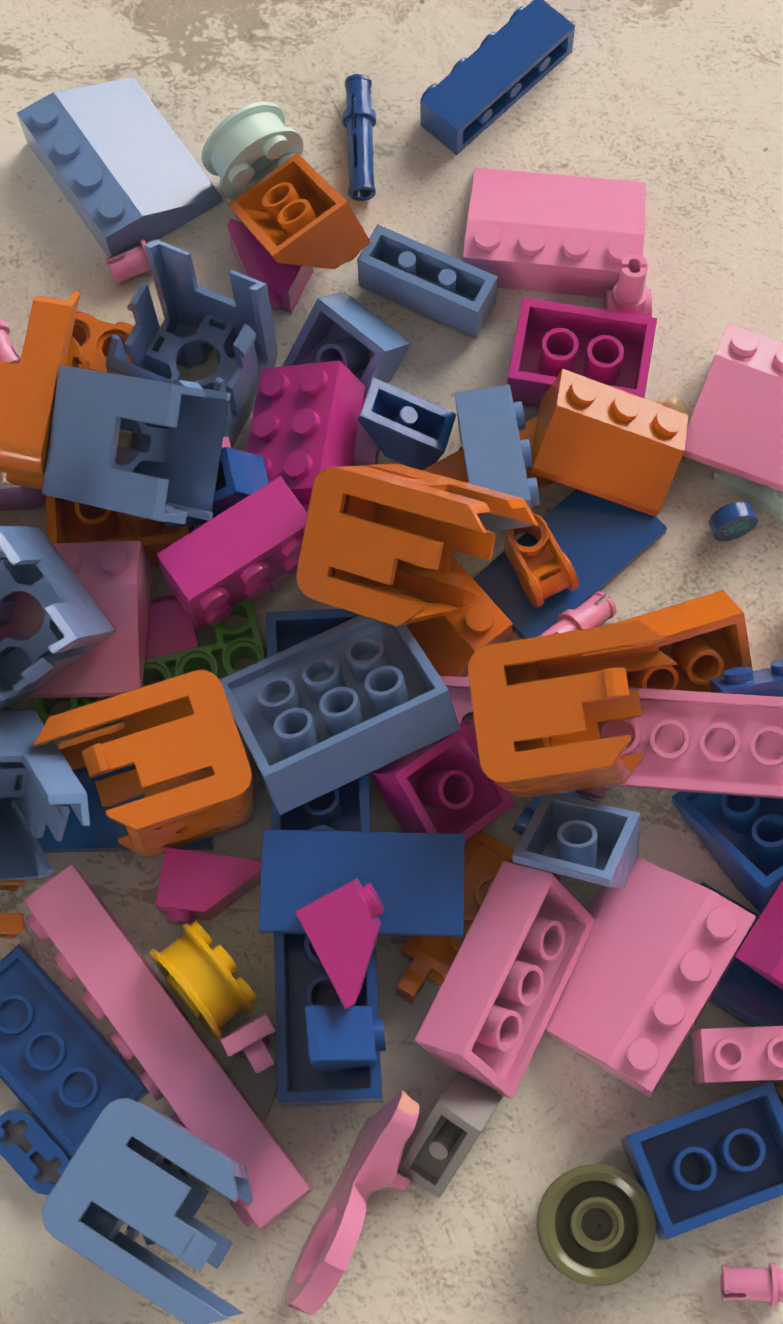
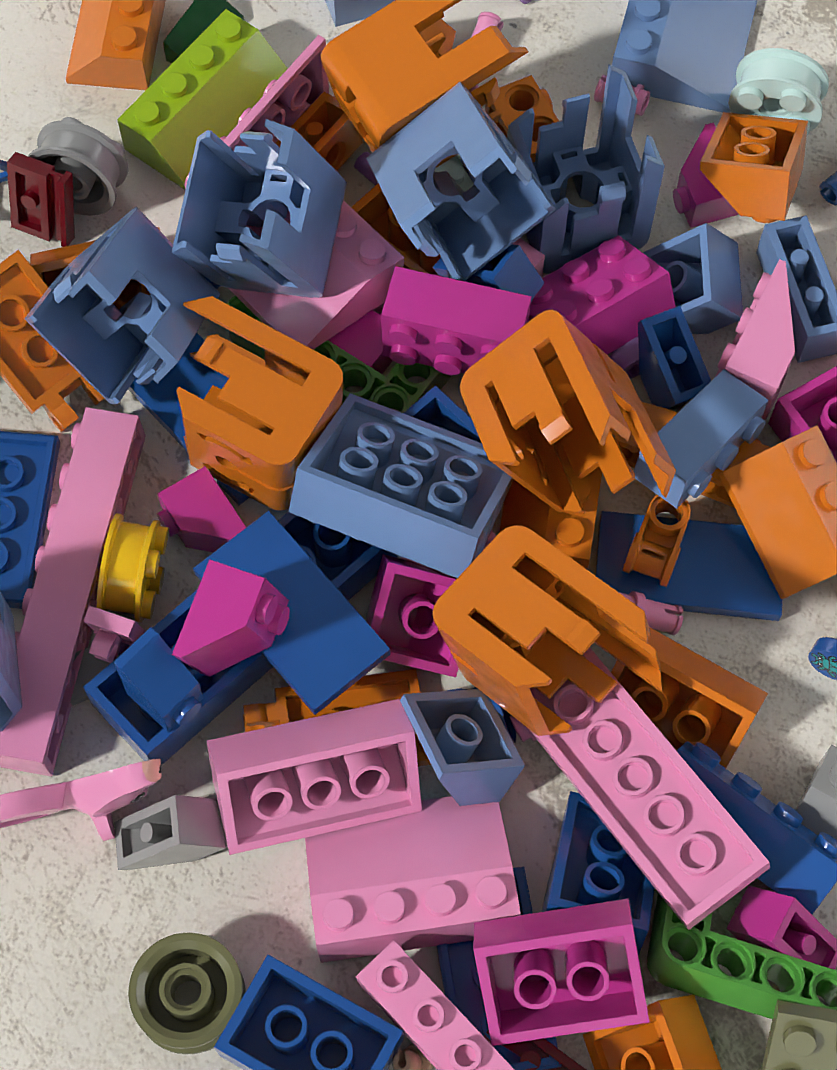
camera: 45 degrees right, 5 degrees down
(450, 344) = (763, 338): none -> bright pink slope

